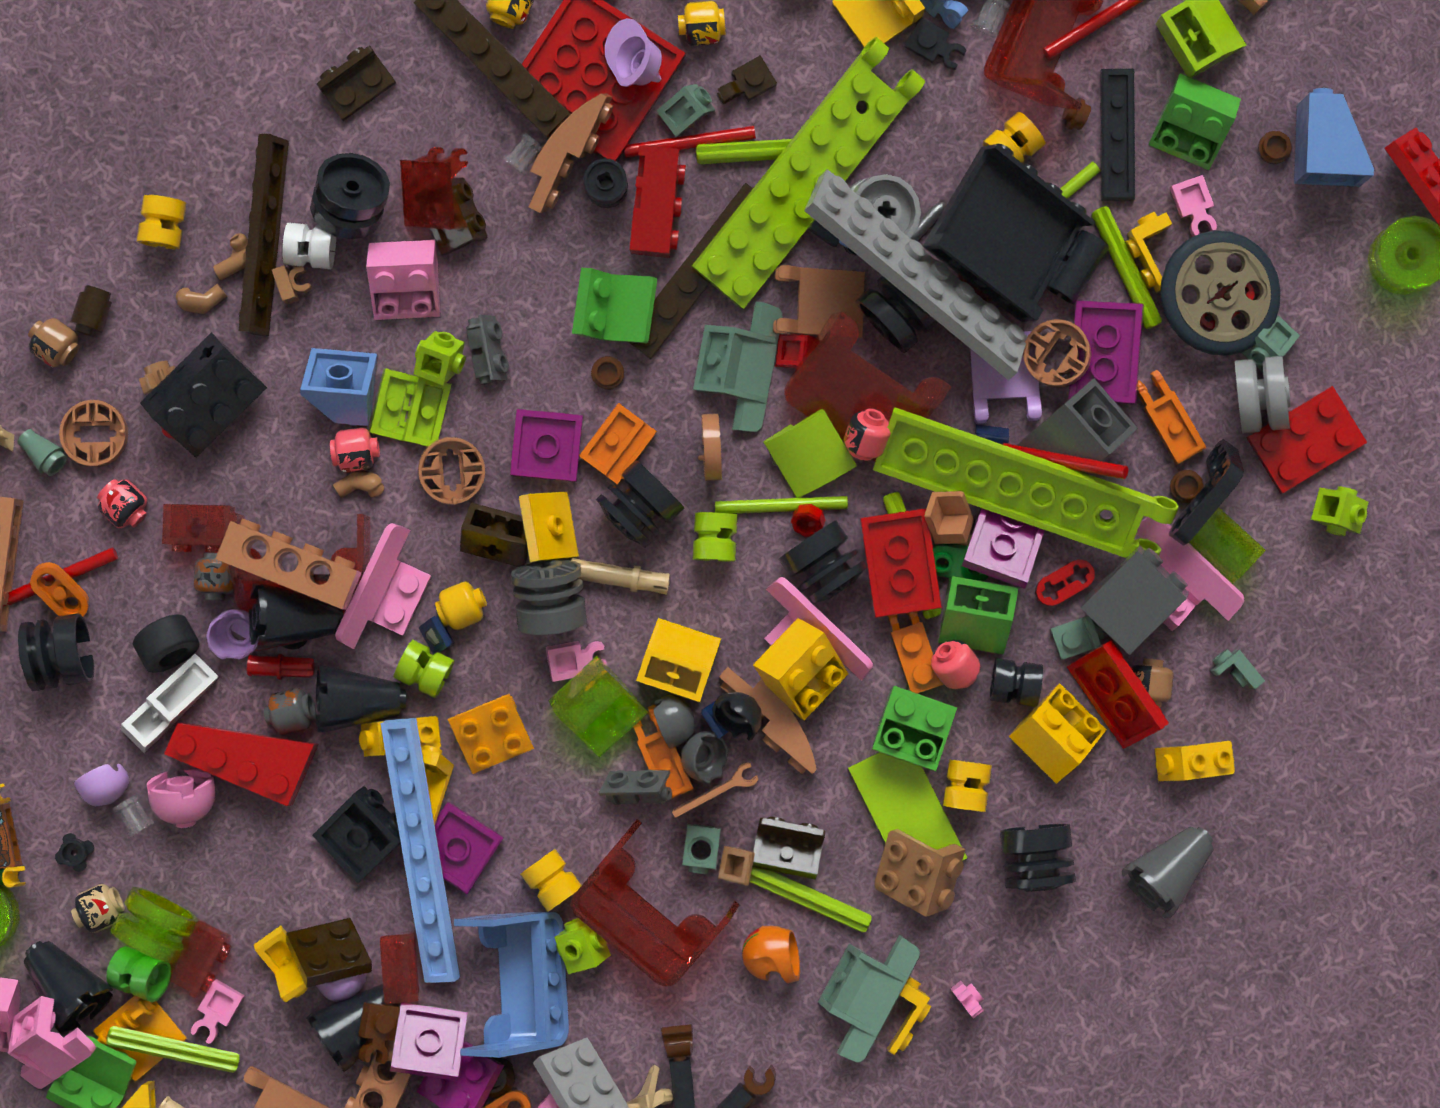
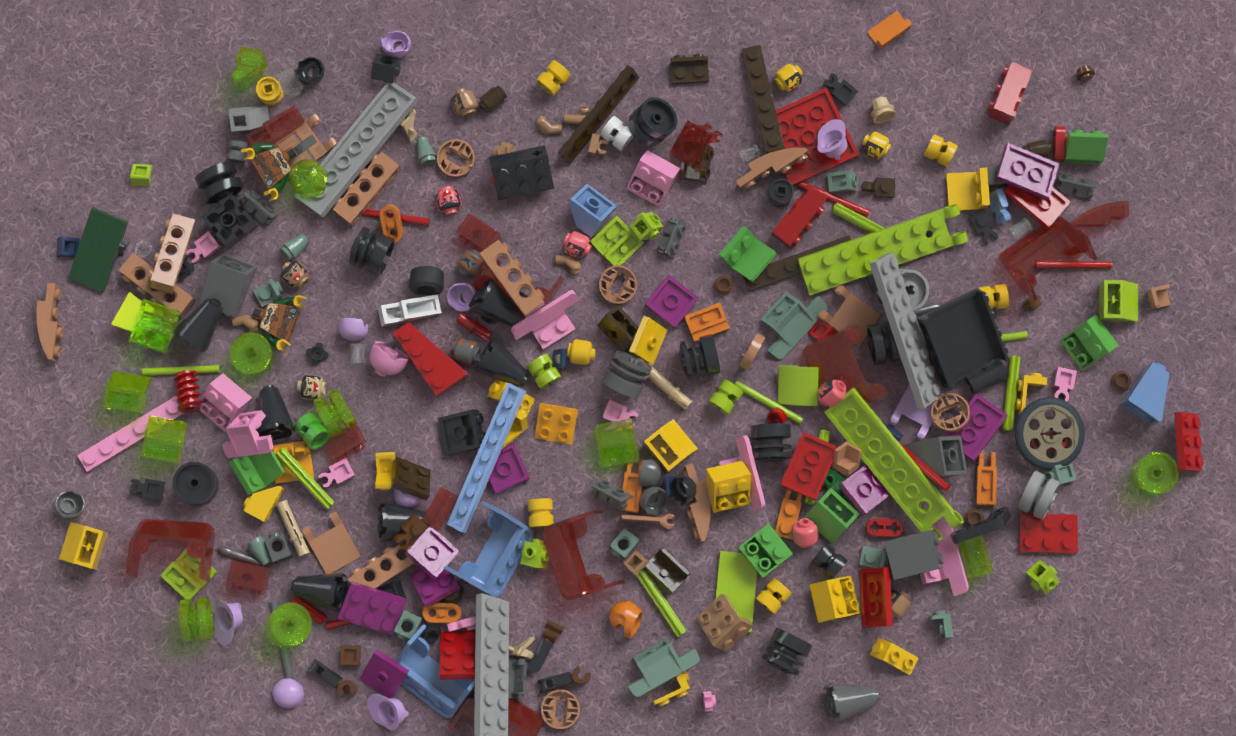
camera: 25 degrees right, 5 degrees down
(1117, 135) = (1047, 325): black tile -> none

